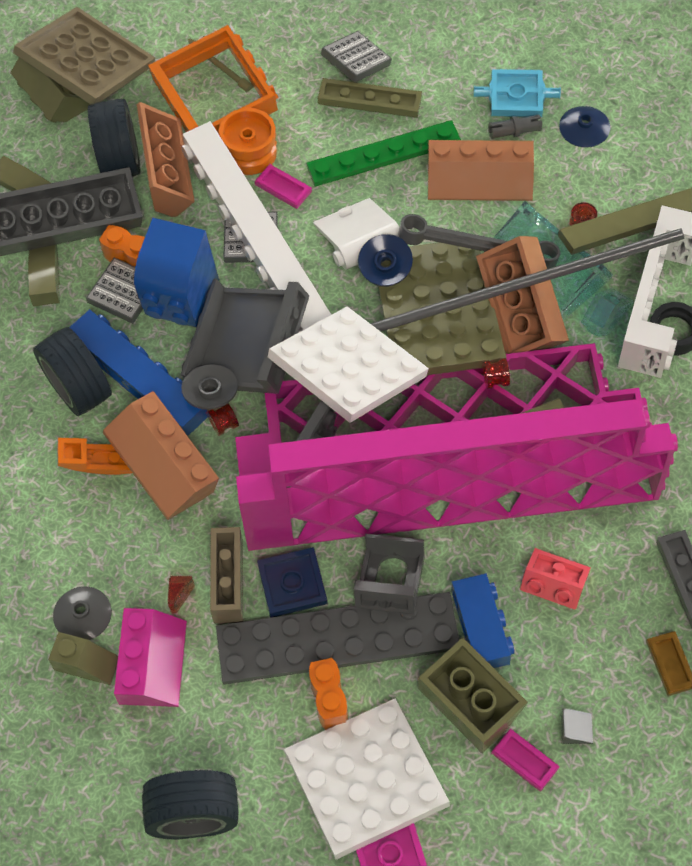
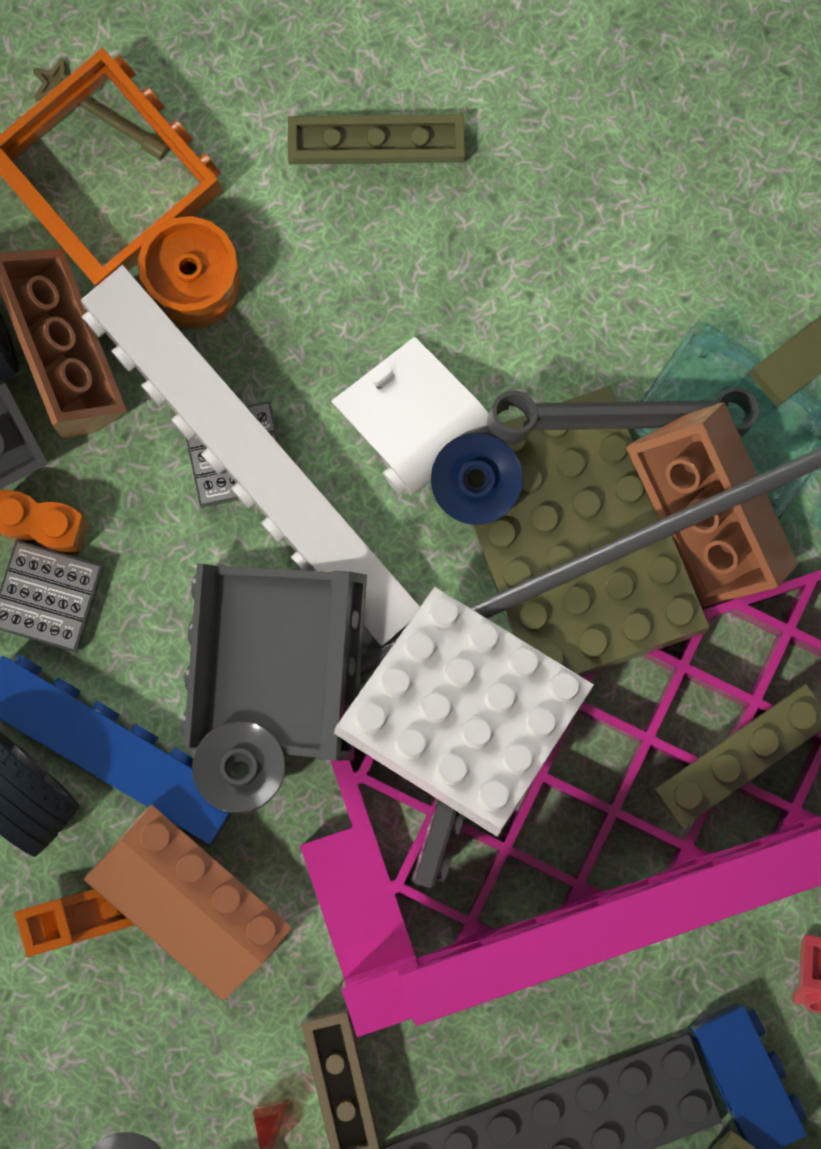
camera: 20 degrees left, 20 degrees up
(174, 272) = (135, 589): blue brick -> none
(222, 419) = (273, 811): clear red wheel -> none
(283, 186) = (266, 341): dark pink tile -> none
(292, 582) = (442, 1068): dark blue plate -> none
(356, 56) = (336, 62): tile -> none
(379, 153) = (421, 245): green plate -> none
(385, 596) = (623, 989): dark grey panel -> none
(480, 170) = (593, 257): nougat slope -> none
(496, 373) = (698, 659): clear red wheel -> none
(515, 126) = (632, 154): dark grey pin -> none
(517, 92) = (623, 85): medium azure plate -> none
(582, 133) = (741, 147): dark blue dish -> none
(582, 209) = (773, 326): clear red wheel -> none

